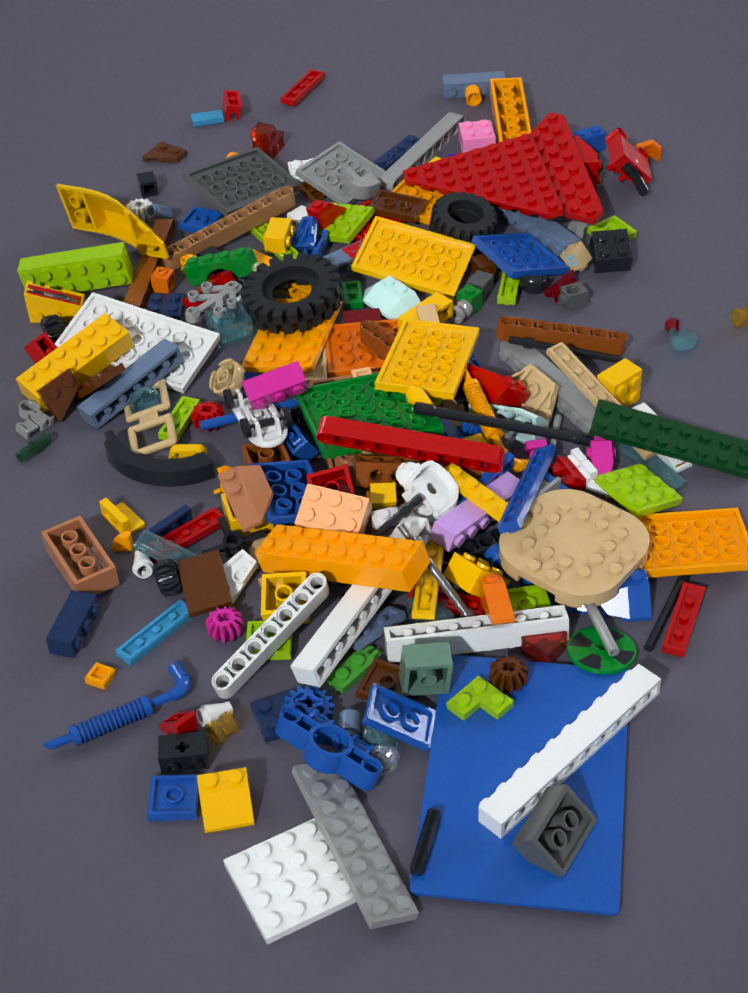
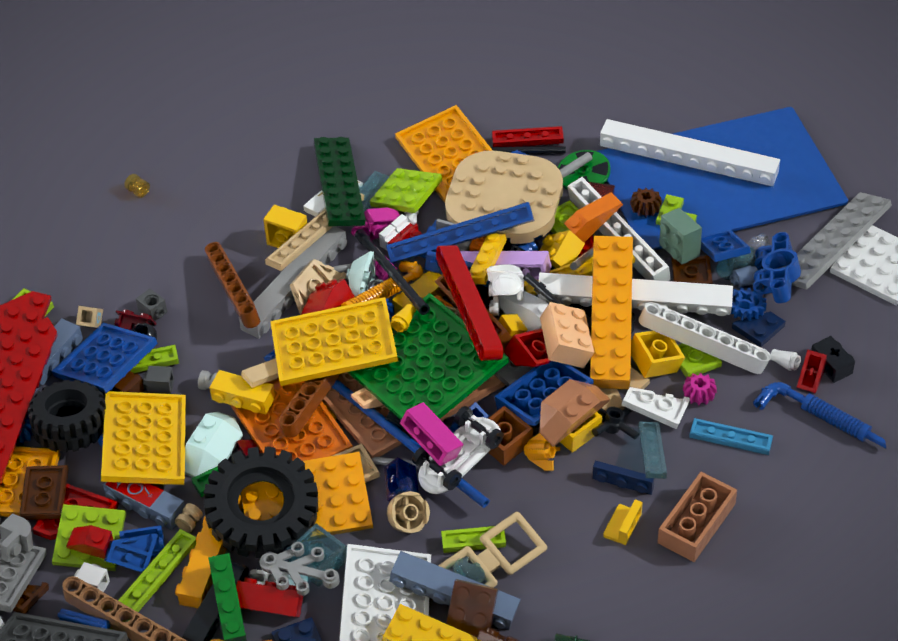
camera: 115 degrees left, 5 degrees up
(73, 624) = (765, 489): dark blue brick -> none
(100, 676) = (797, 451): light orange tile -> none
(123, 542) = (652, 502): light orange tile -> none
(142, 565) = (674, 475): white cone -> none
(157, 471) = (548, 503): black arch -> none
(167, 577) = (680, 441): black gear -> none
(173, 798) = (869, 353): blue tile -> none
(186, 450) = (517, 504): yellow beam -> none
(194, 529) = (593, 451): red plate -> none
(204, 583) = (671, 413): reddish brown tile -> none
(205, 411) = (460, 514): red gear -> none
(222, 727) = (795, 345): clear yellow wheel -> none
(225, 800) = (850, 319): yellow slope -> none
(278, 235) = (145, 573): yellow brick -> none
(425, 842) = (812, 201): black axle -> none
(473, 296) = (188, 377): green brick -> none
(529, 343) = (256, 298): black bar -> none
(555, 830) = (761, 142): dark grey slope -> none
(611, 251) = (70, 291): black brick -> none
(672, 323) = (167, 229): dark red plate -> none
(683, 340) = (189, 214): clear light blue hair -> none

